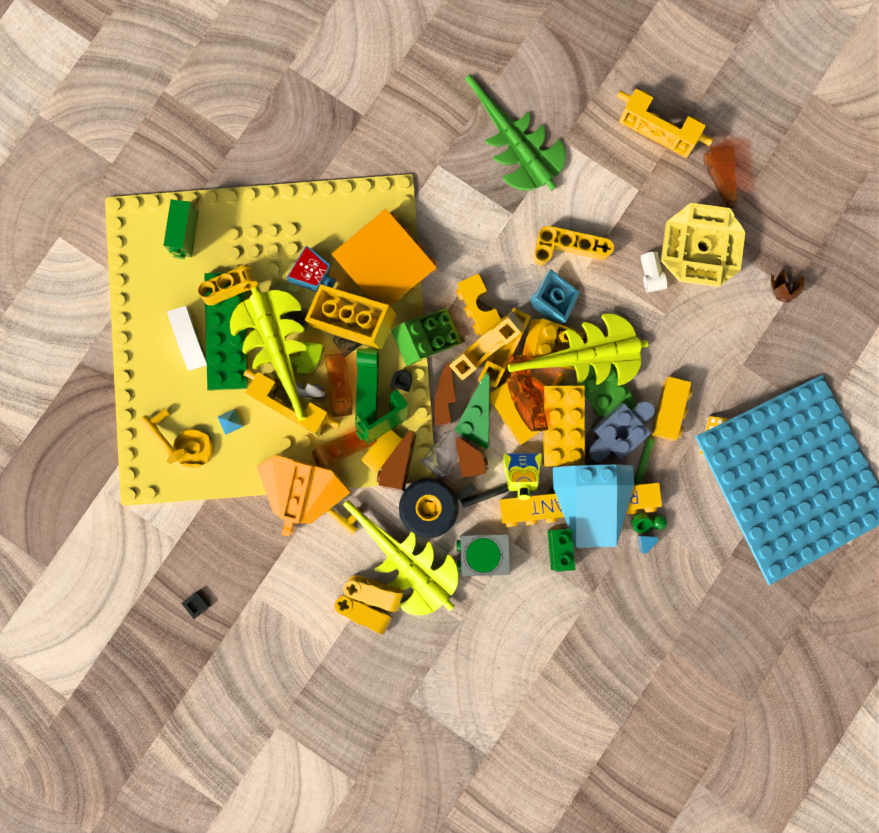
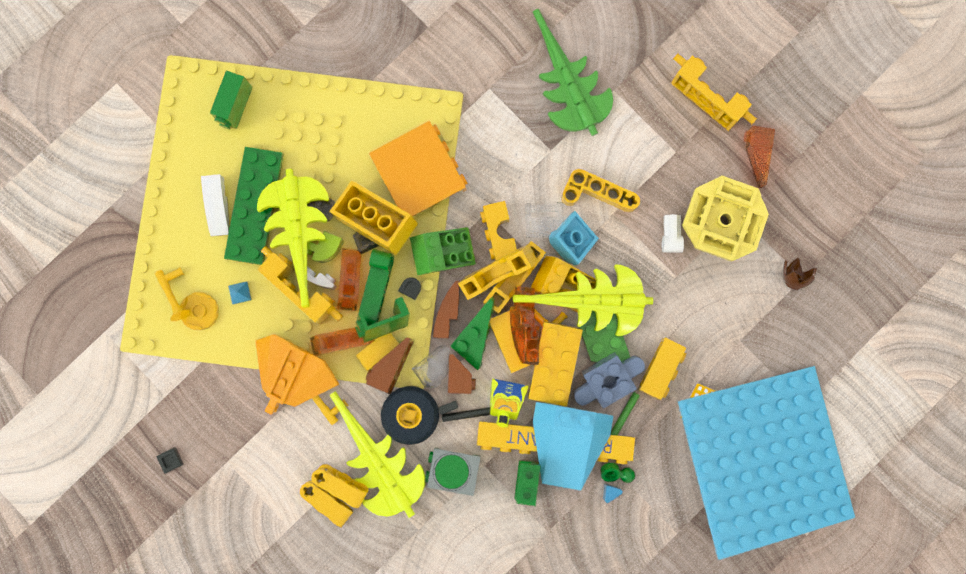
camera: 10 degrees right, 0 degrees up
(238, 285) = (276, 159): yellow piece -> none
(311, 271) = (346, 166): torso -> none

